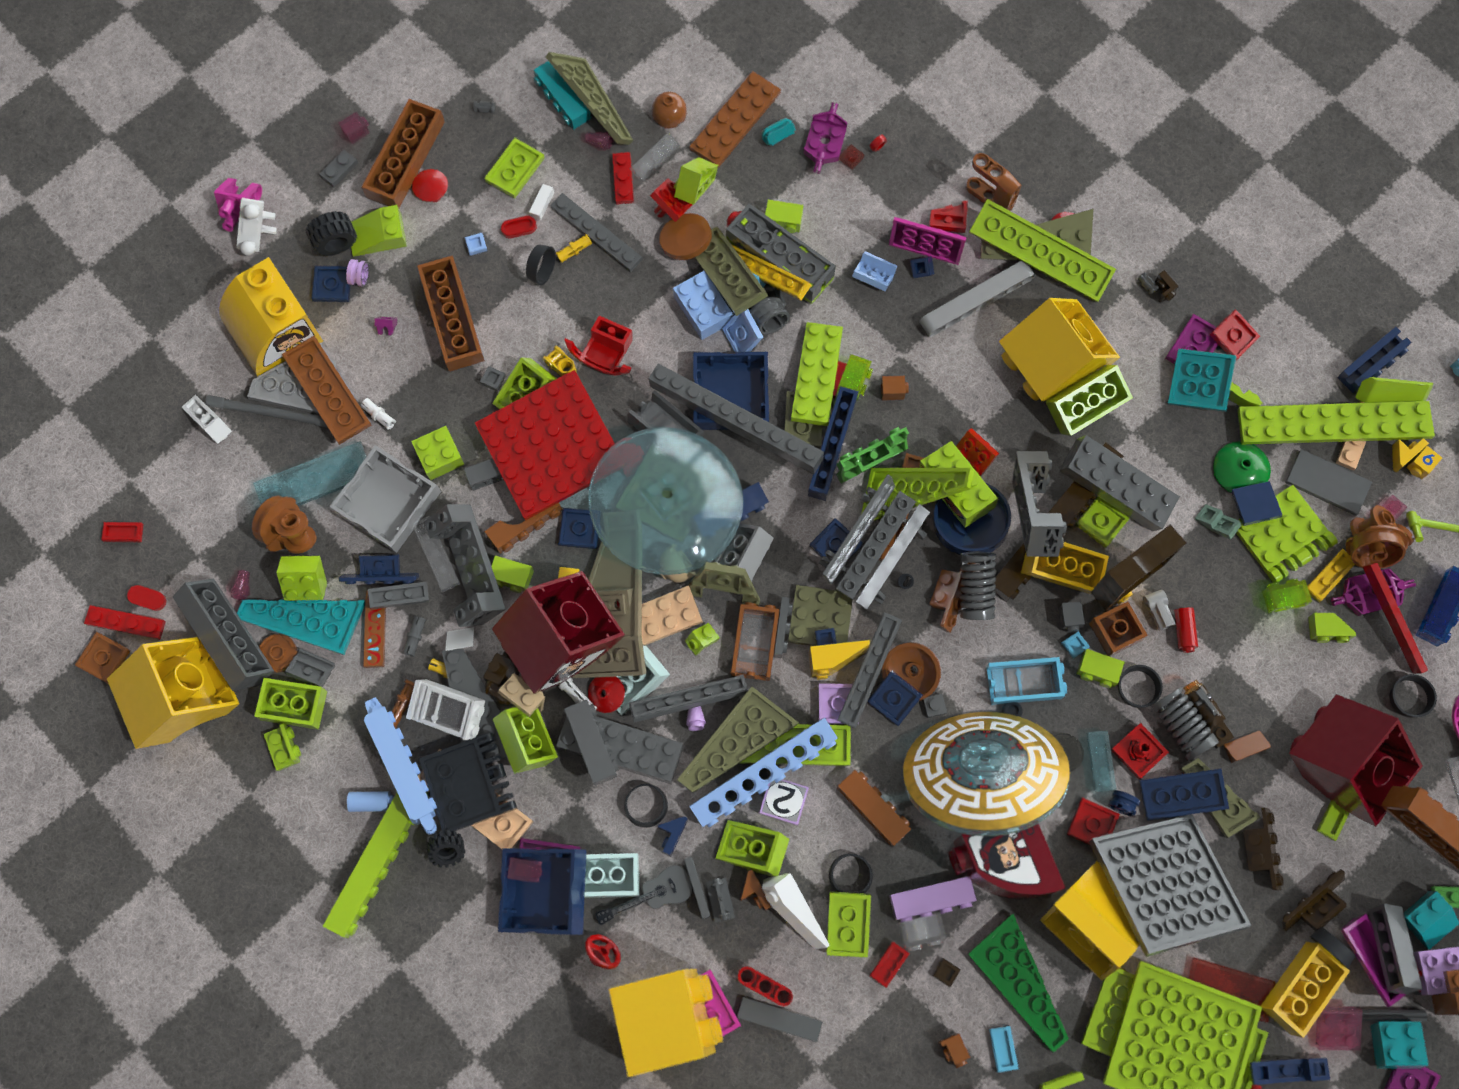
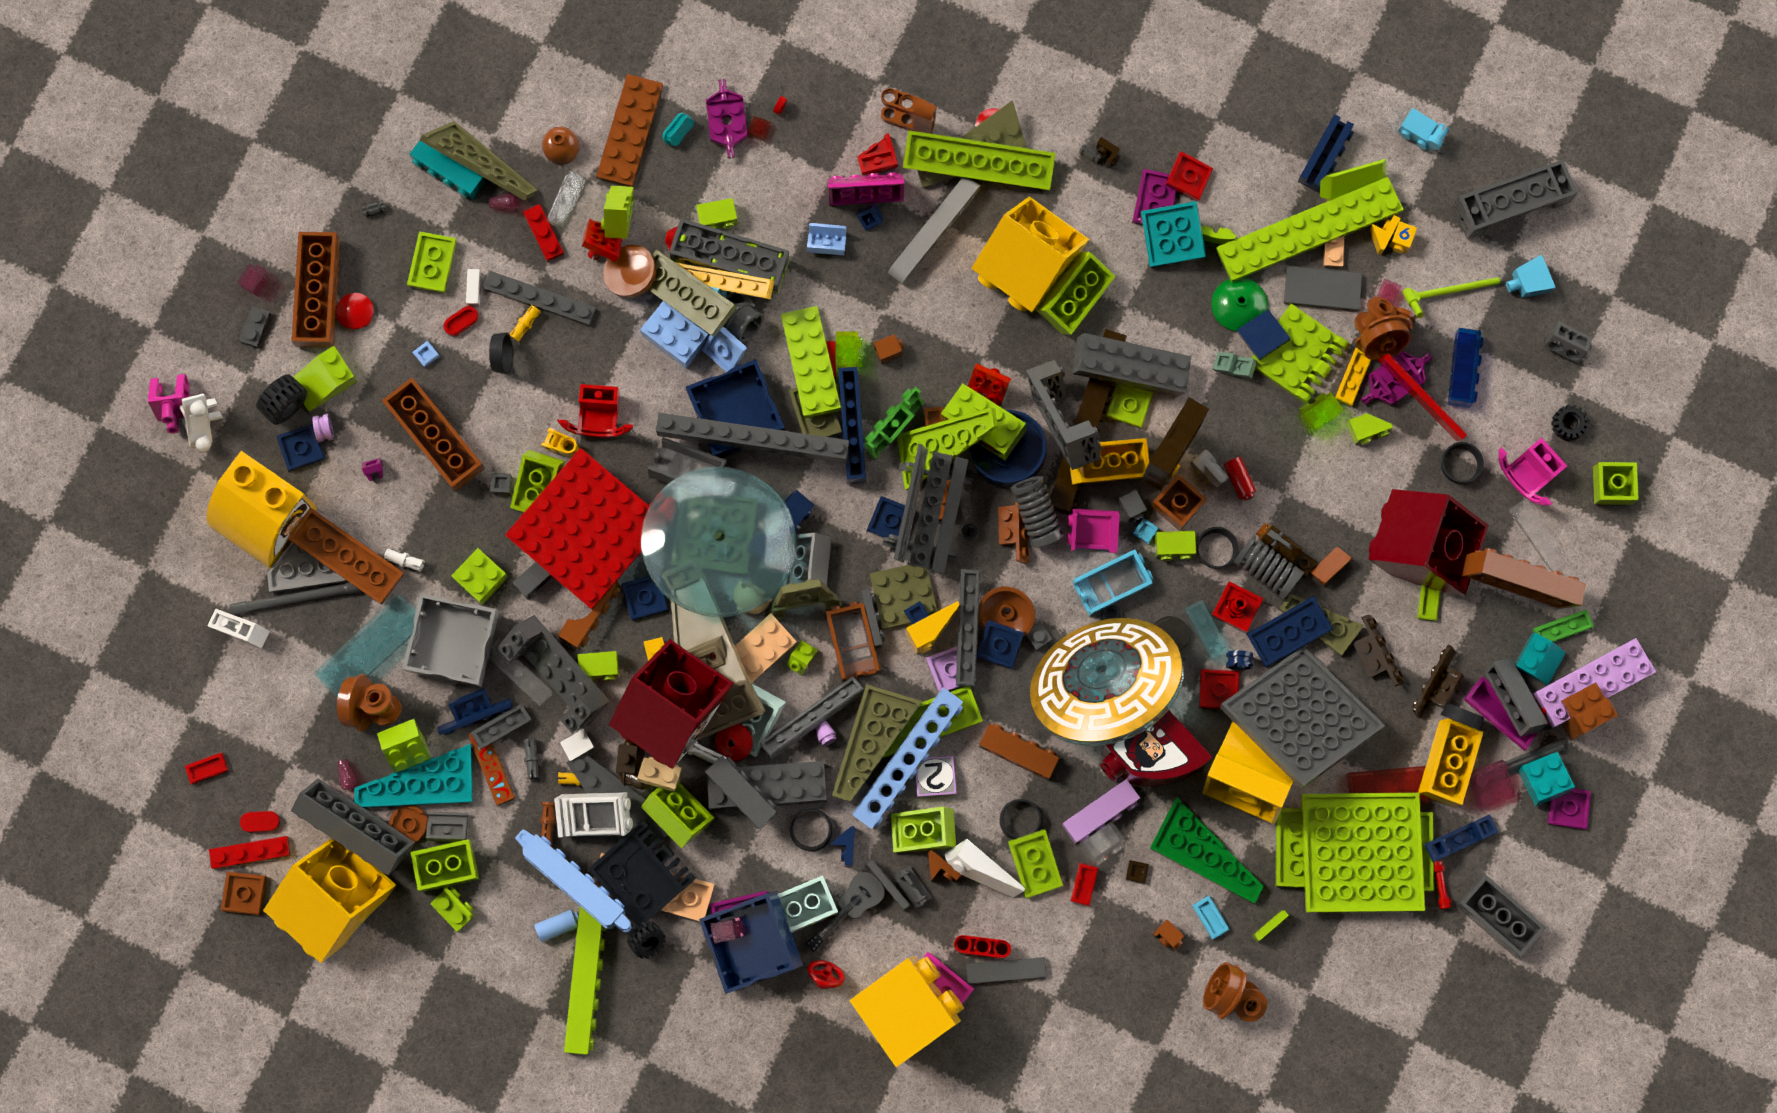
camera: 25 degrees left, 5 degrees up
(1026, 624) = (1093, 529): none -> dark pink panel

